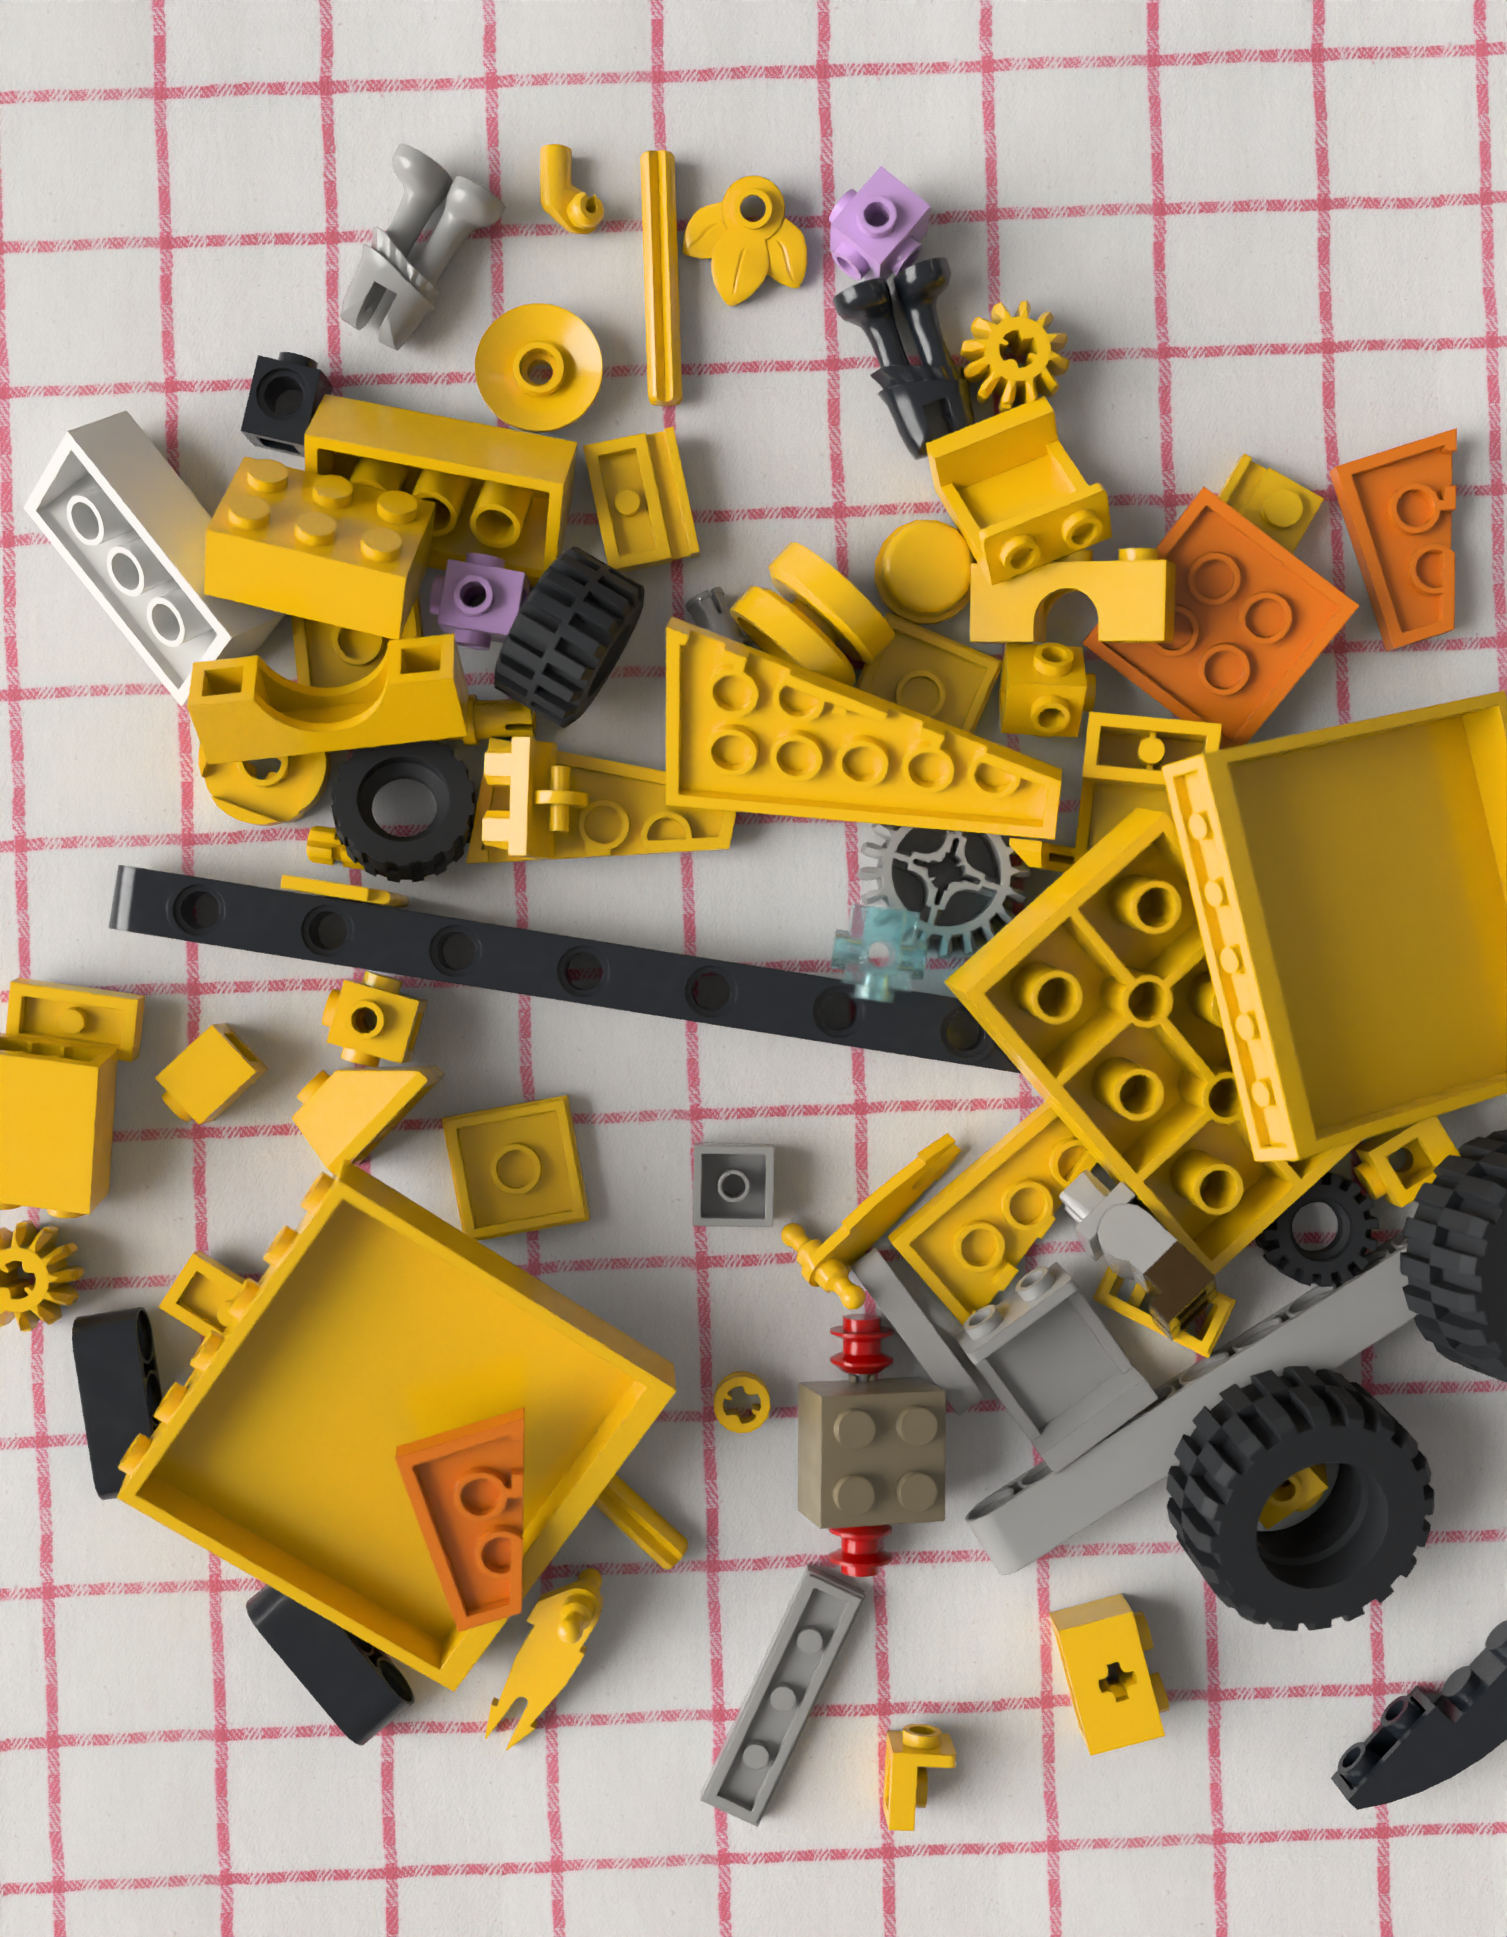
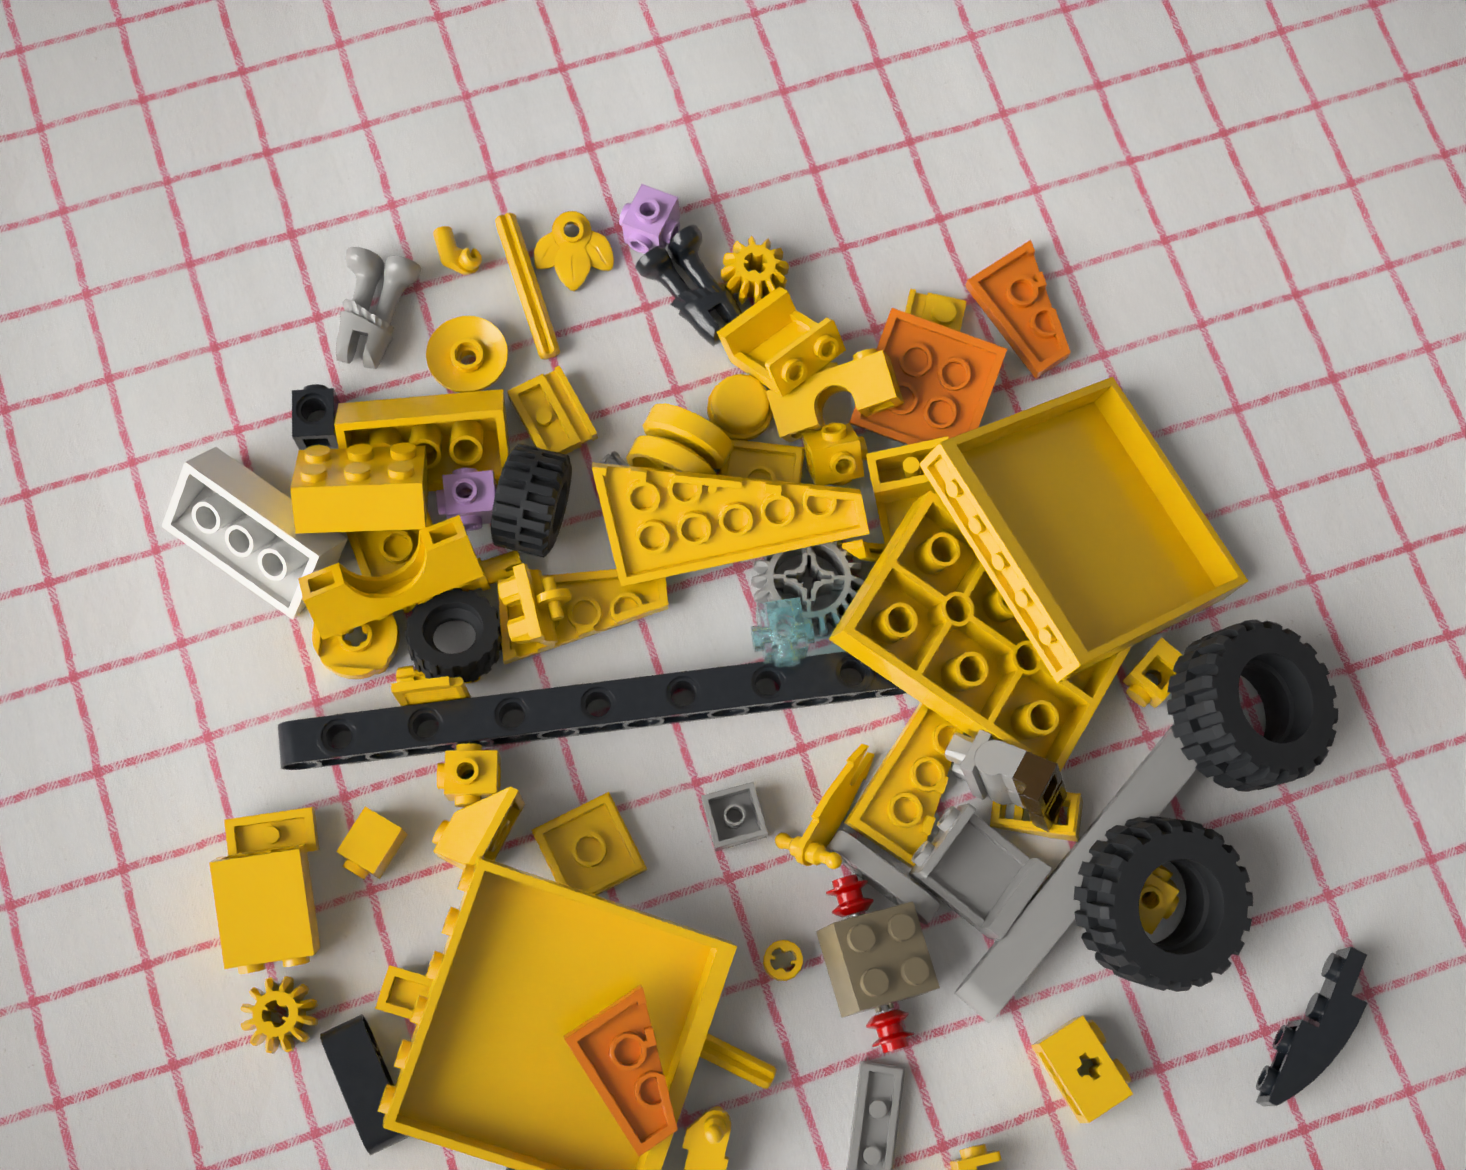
camera: 20 degrees left, 15 degrees down
(1342, 1253) = (1140, 736): black tyre -> none

